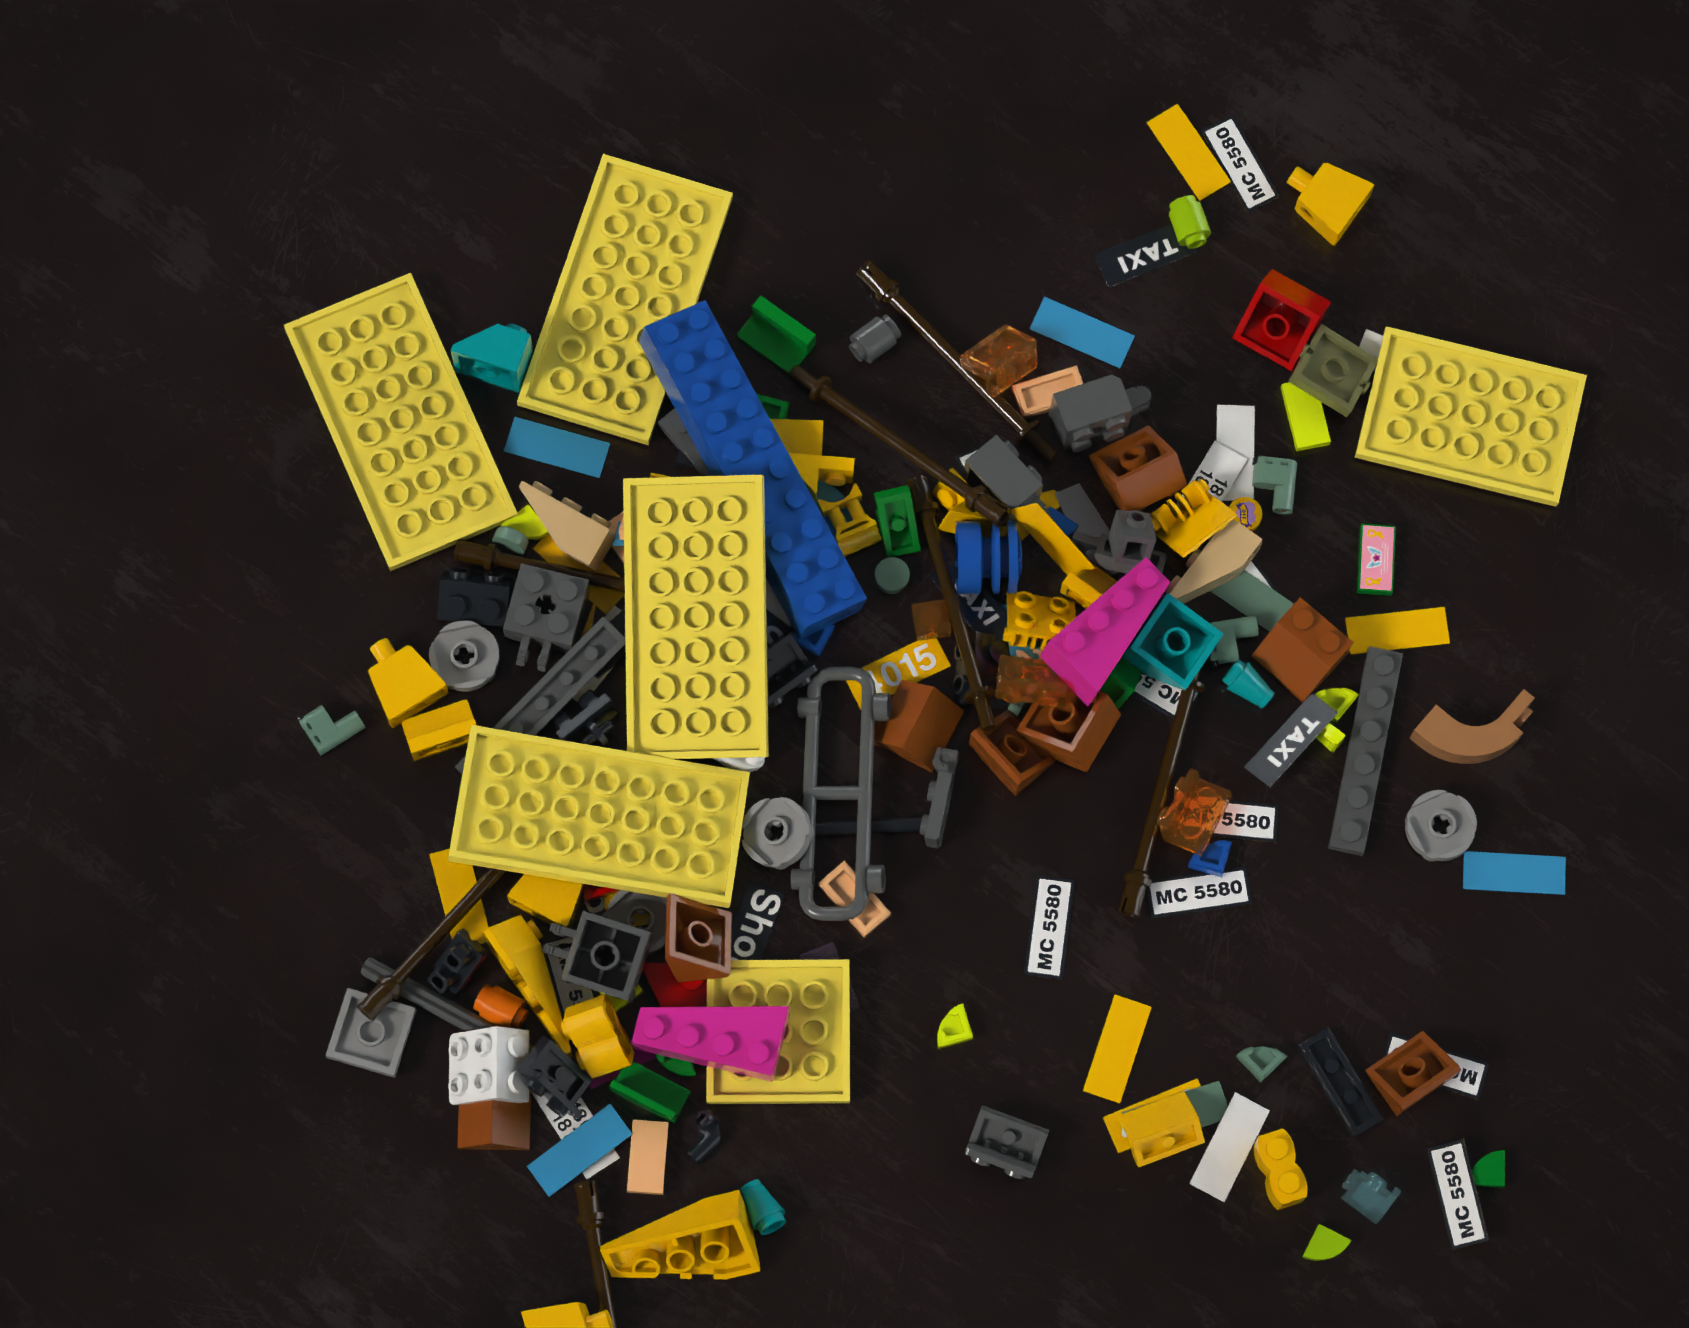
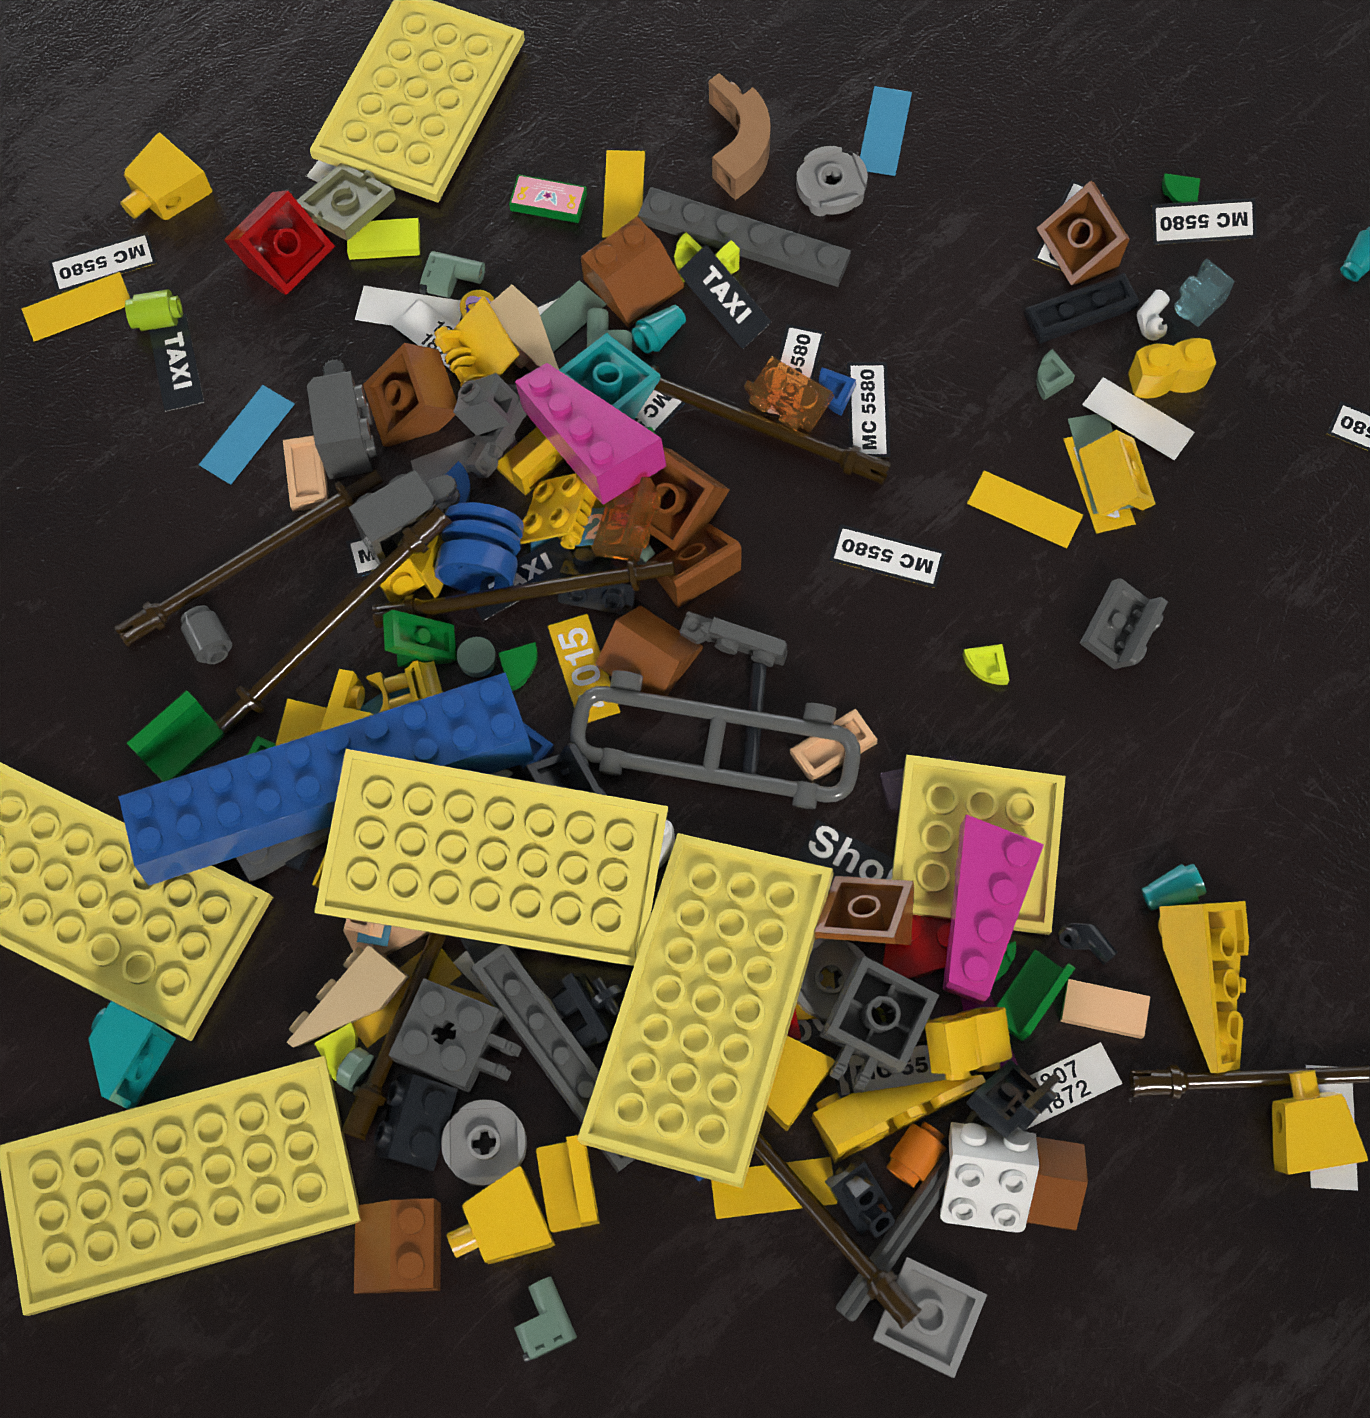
camera: 75 degrees left, 5 degrees down
(372, 604) = (398, 1246): none -> dark orange slope
(557, 447) = (251, 1004): dark azure sticker -> none
(579, 1150) = (1091, 1086): dark azure sticker -> none
(757, 833) = (752, 789): light grey plate -> none
(889, 613) = (519, 664): none -> green tile
(931, 620) = (534, 623): clear orange plate -> none
(1001, 359) = (258, 507): clear orange bracket -> none
(1052, 538) = (472, 478): yellow sticker -> none
(1325, 1244) = (1247, 344): lime tile -> none
(1340, 1147) = (1148, 316): none -> white arm

